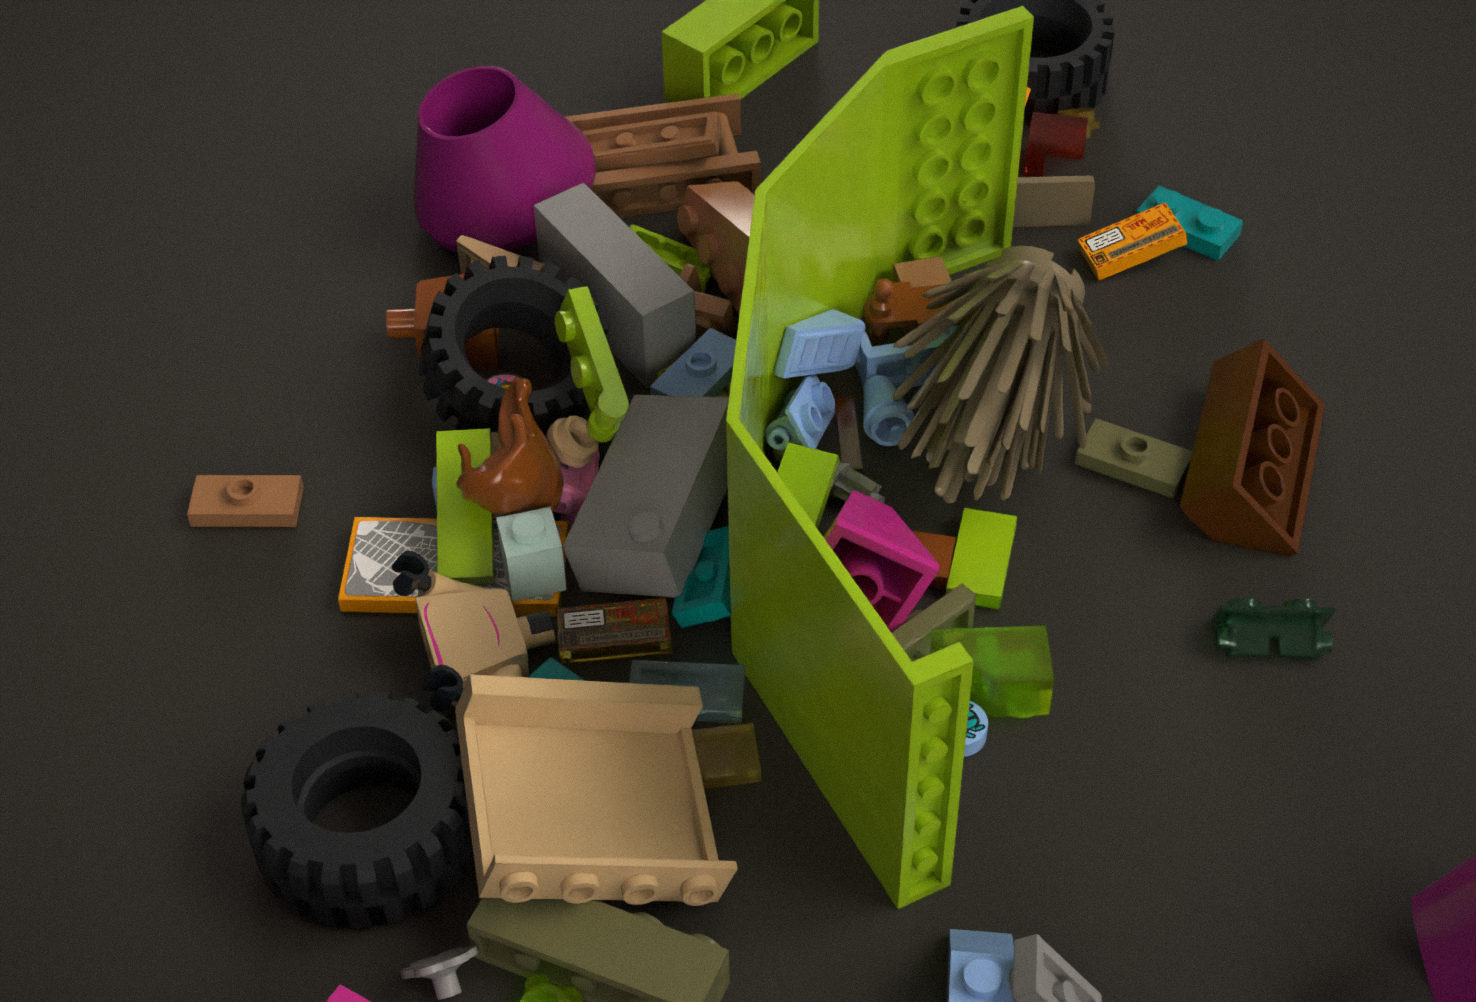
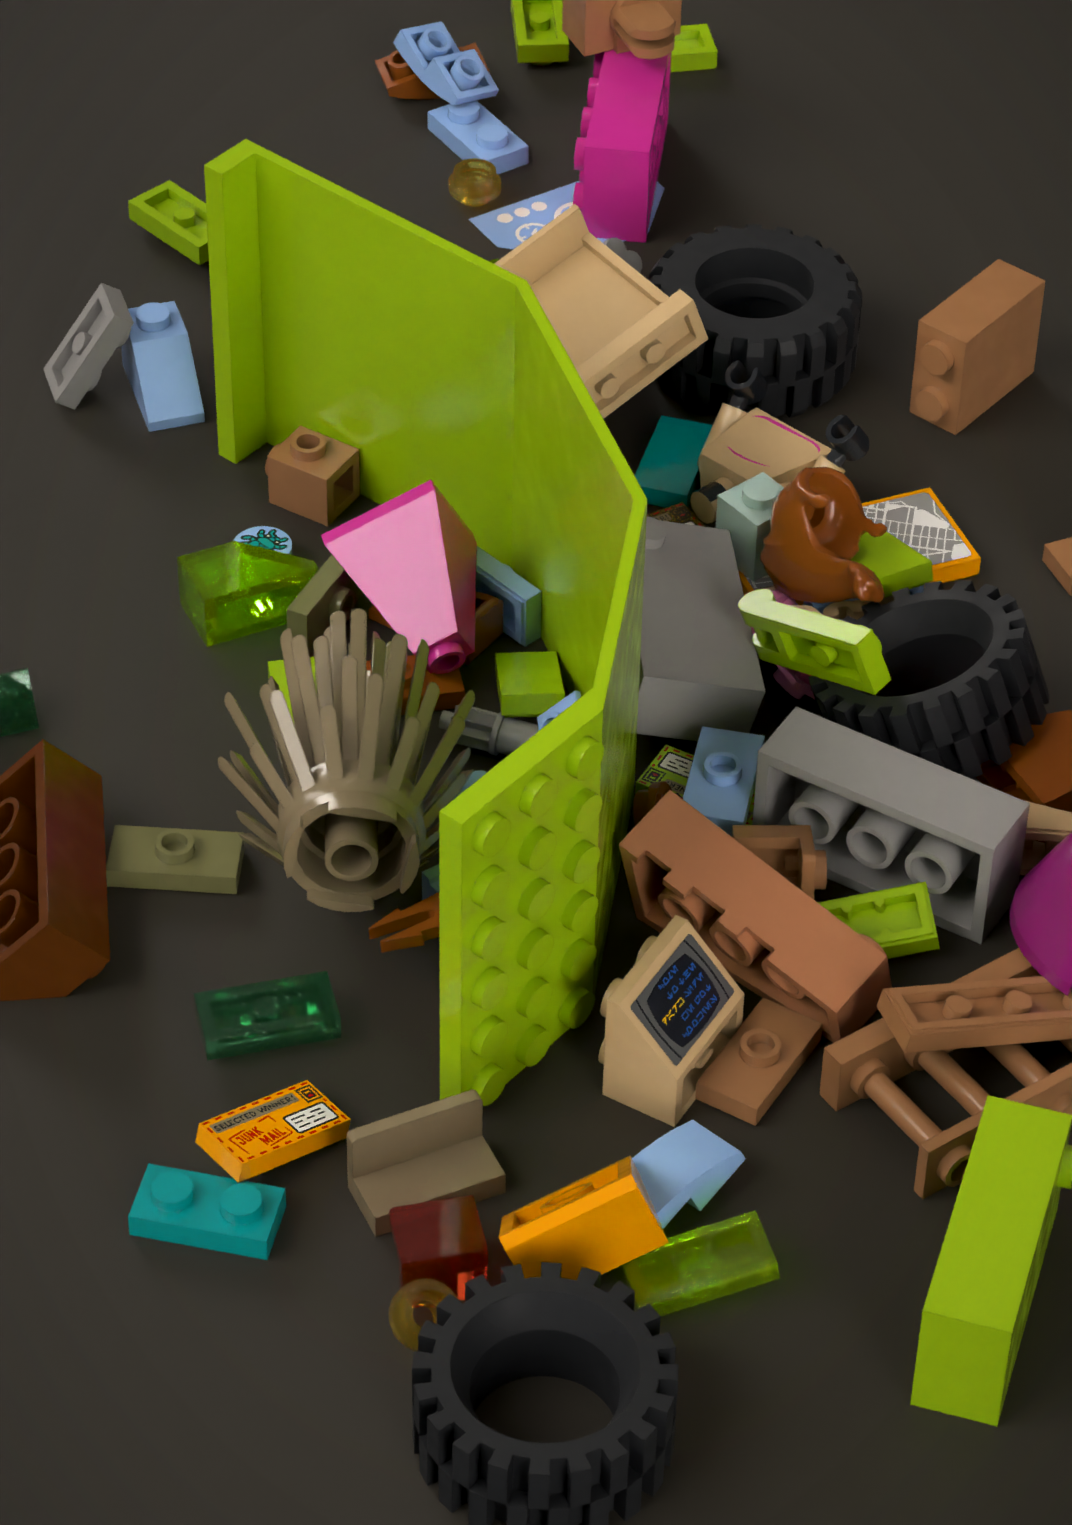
camera: 155 degrees right, 5 degrees down
(190, 689) = (976, 346): none -> medium nougat brick
(1123, 316) = (267, 1015): none -> clear green plate

